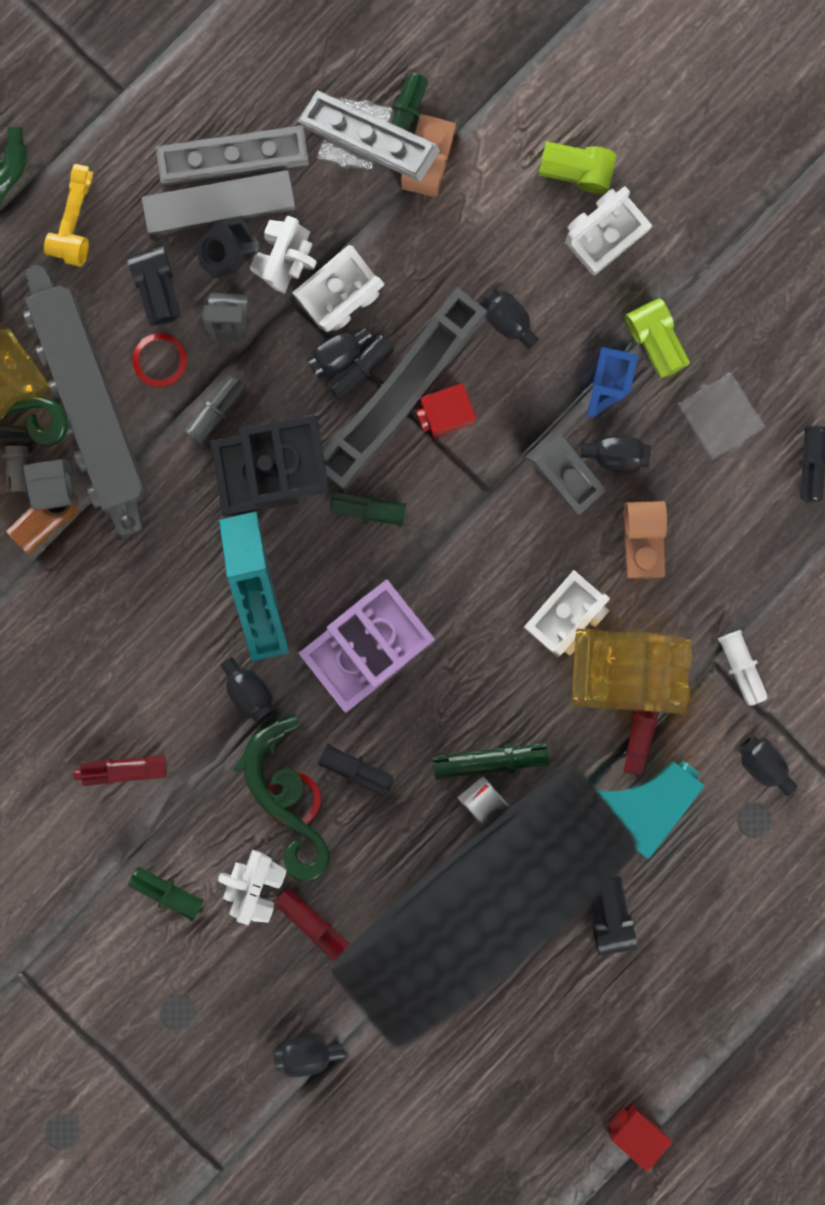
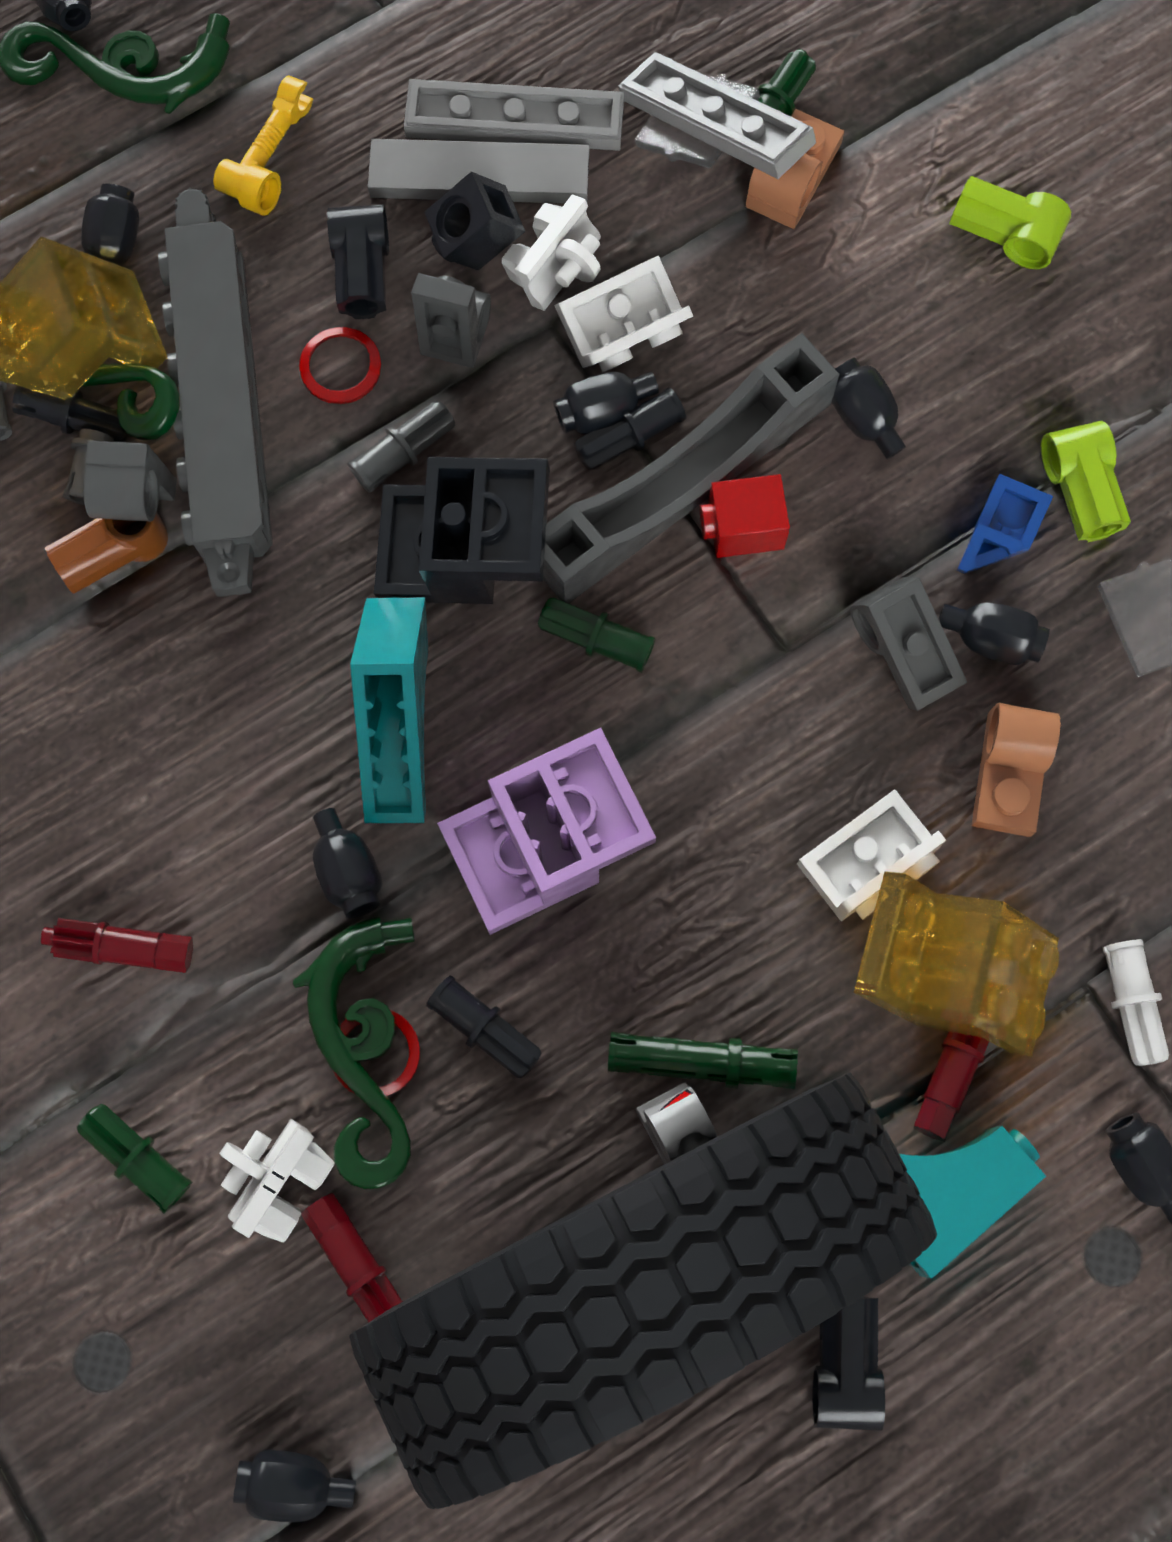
camera: 15 degrees right, 10 degrees down
(607, 230) = (1036, 312): white bracket -> none

